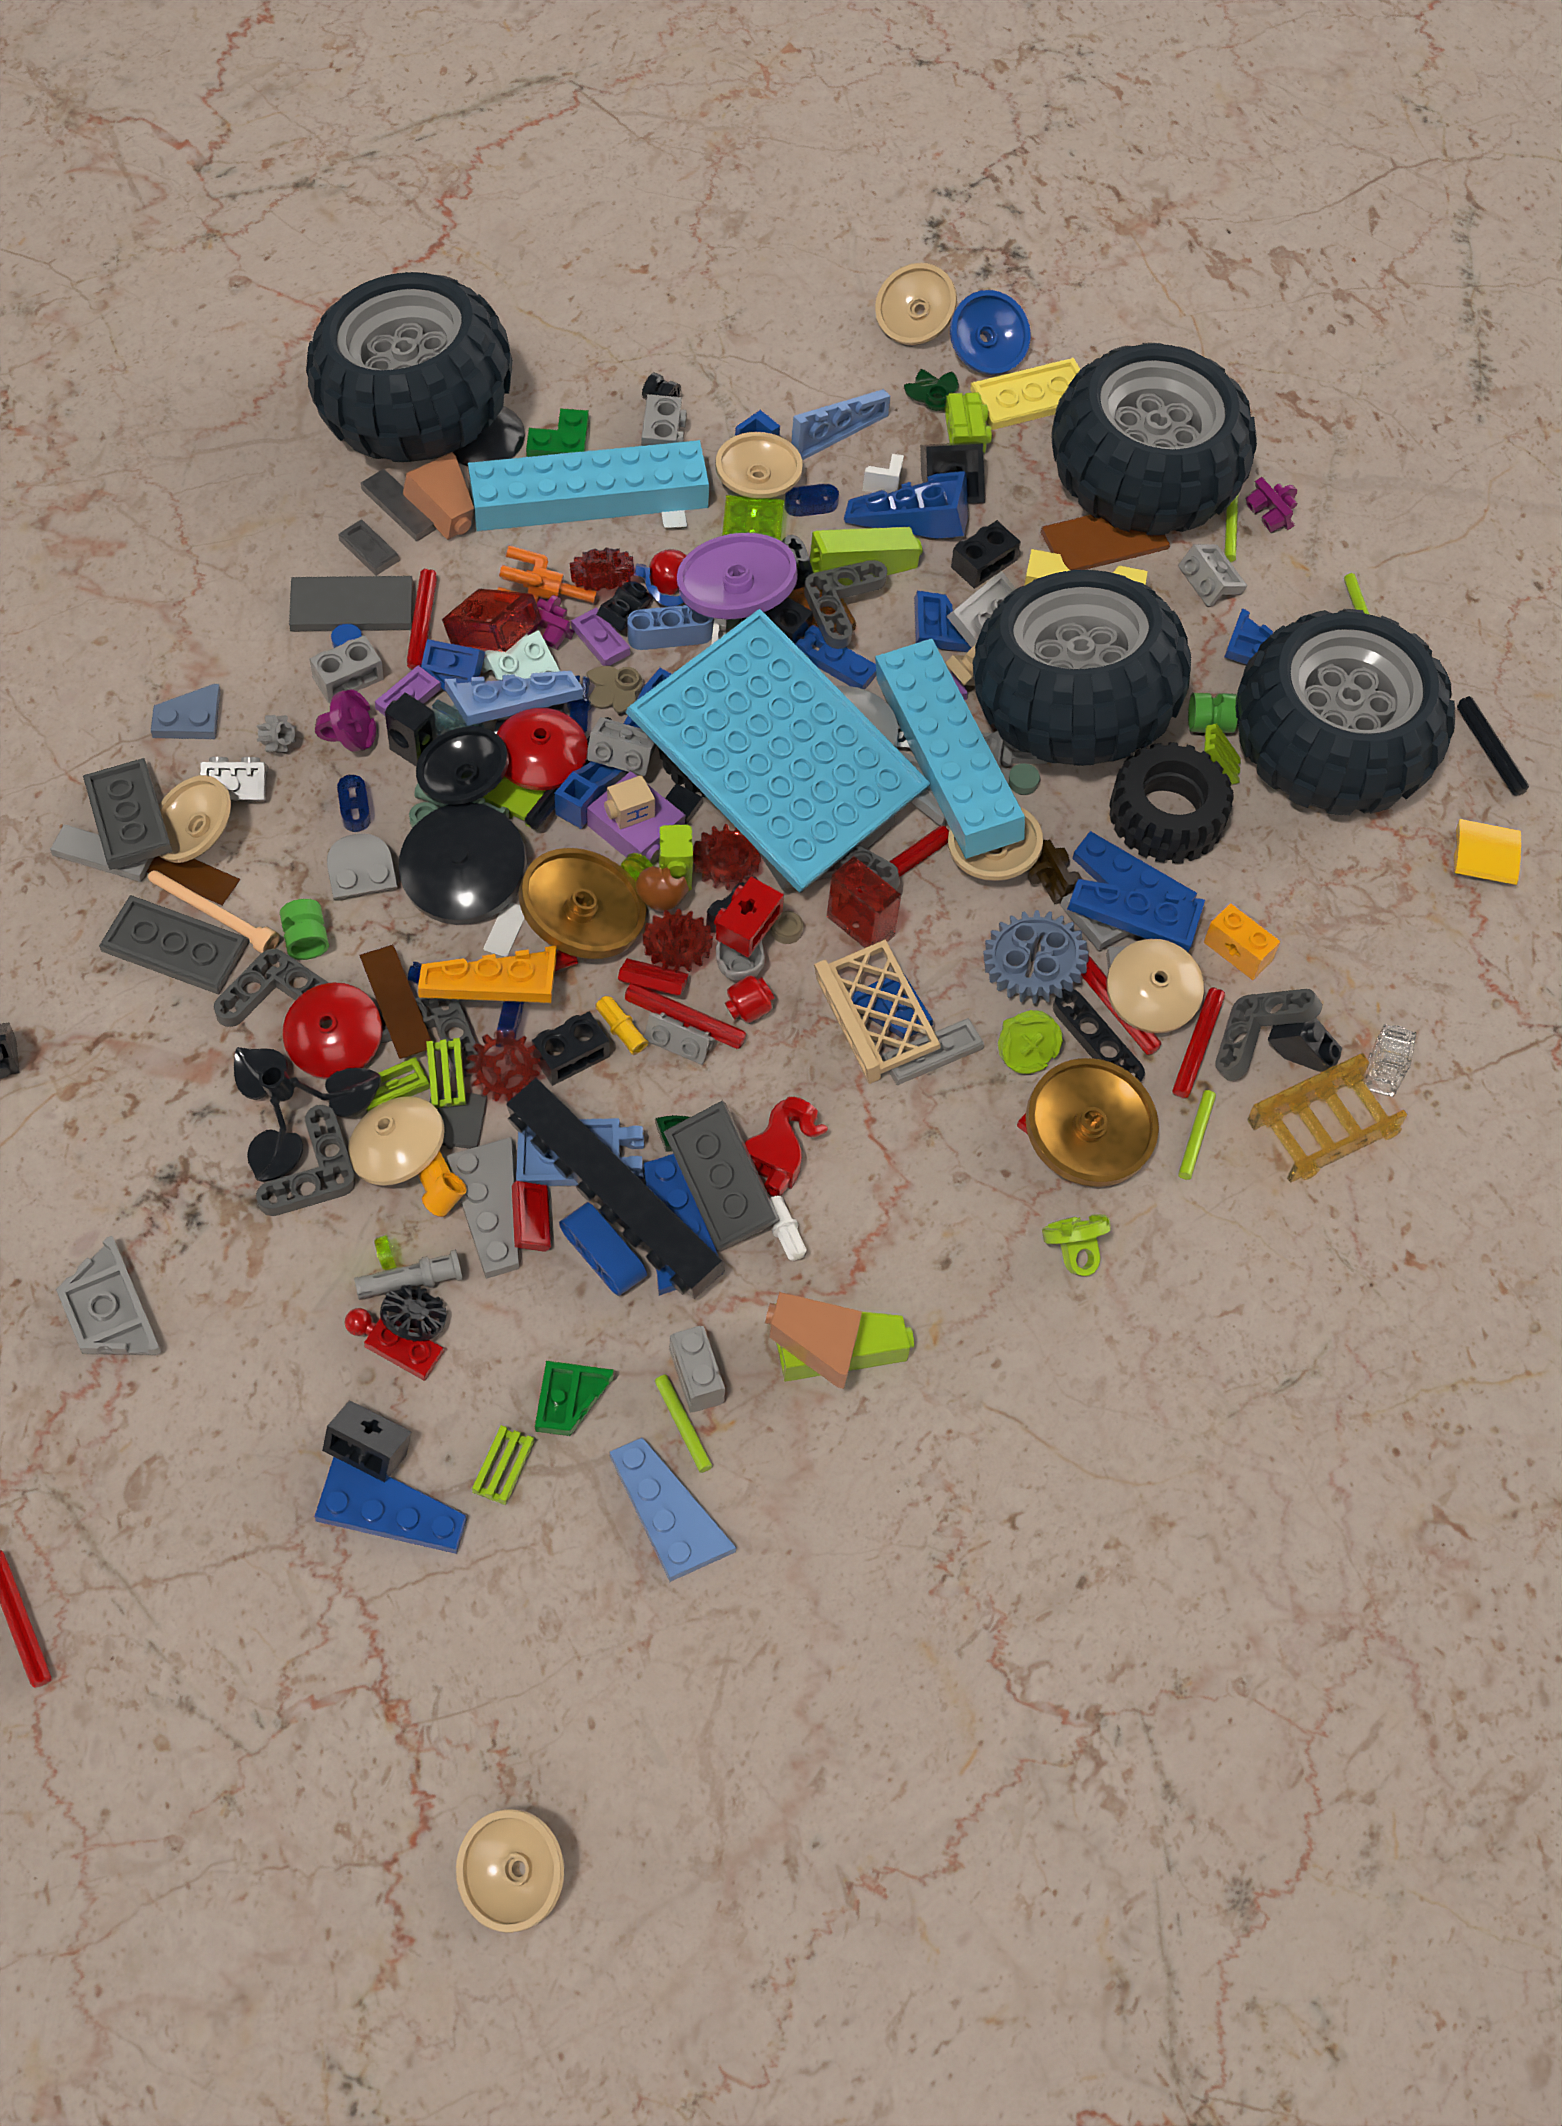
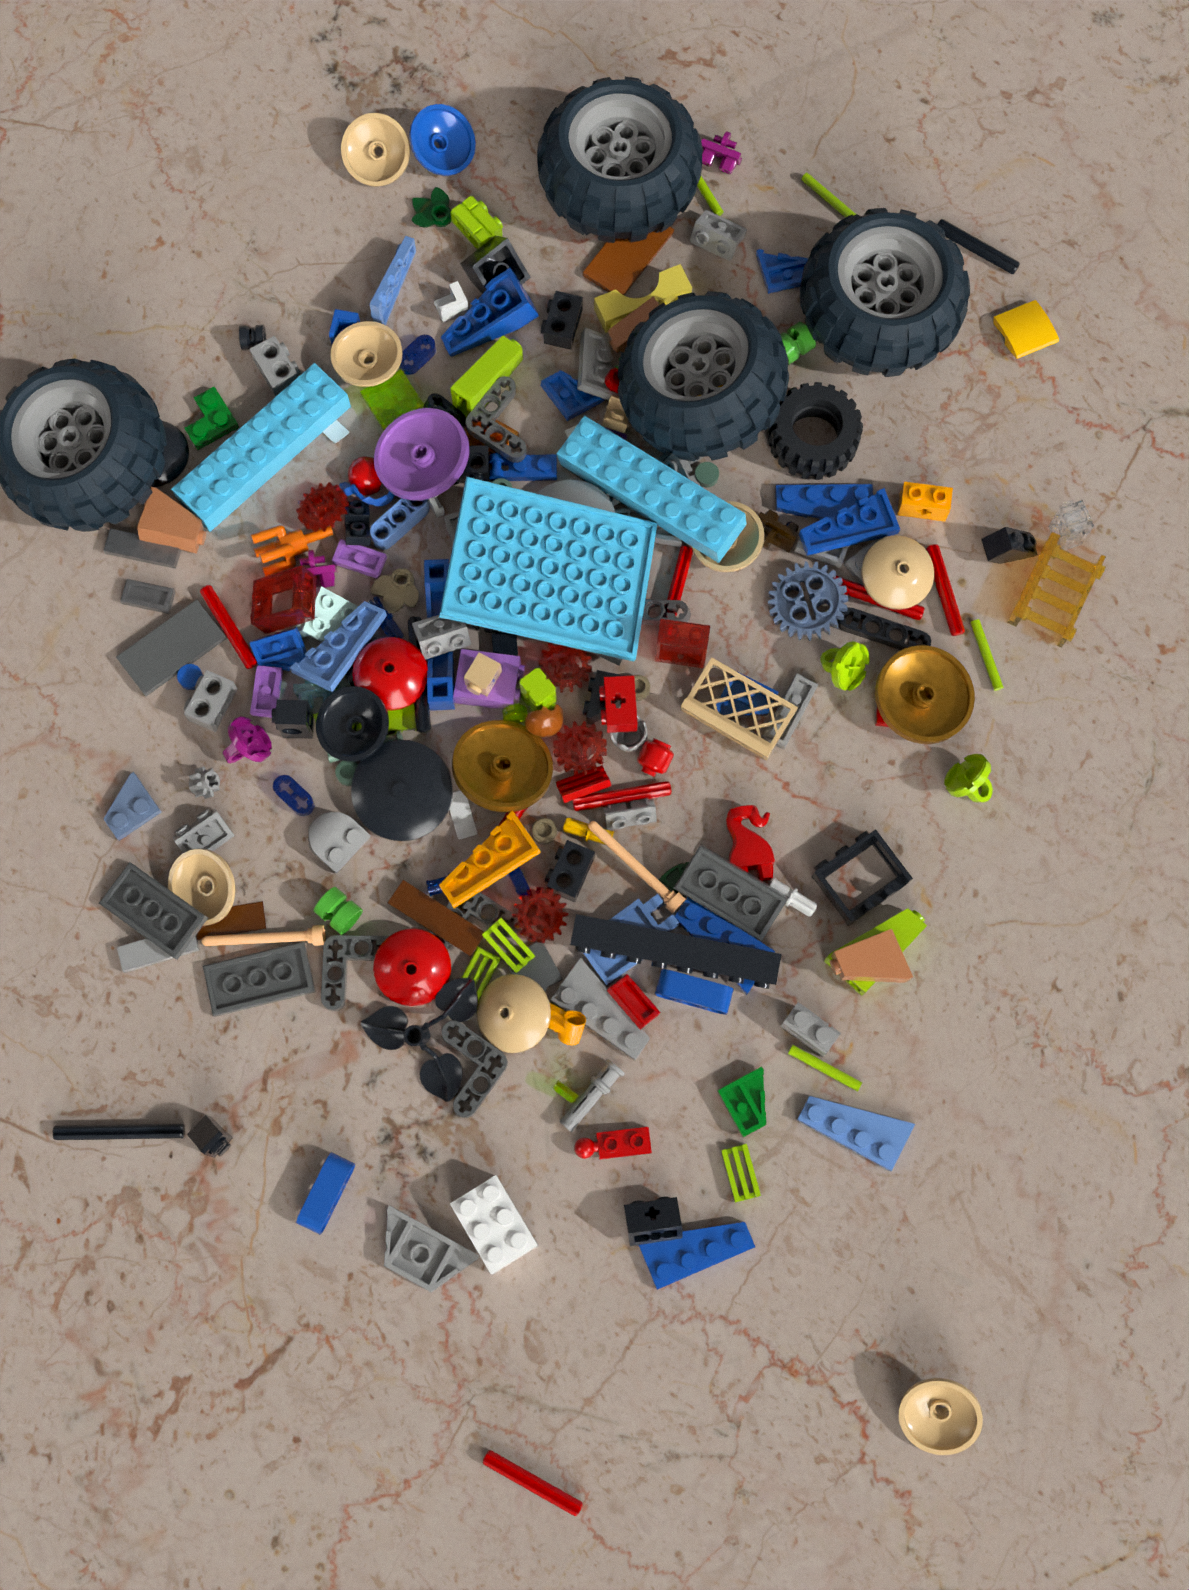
camera: 30 degrees left, 15 degrees up
(60, 1181) = (325, 1193): none -> blue beam
(200, 1329) = (494, 1224): none -> white brick
(413, 1313) = (614, 1118): black wheel -> none
(576, 996) = (544, 831): none -> dark tan tile
(653, 1143) = (671, 899): none -> light nougat piece
(879, 1225) = (845, 855): none -> black window
(1025, 393) = (500, 167): light yellow tile -> none
(1222, 752) = (824, 374): lime tile -> none
(1297, 1007) = (971, 550): dark grey beam -> none

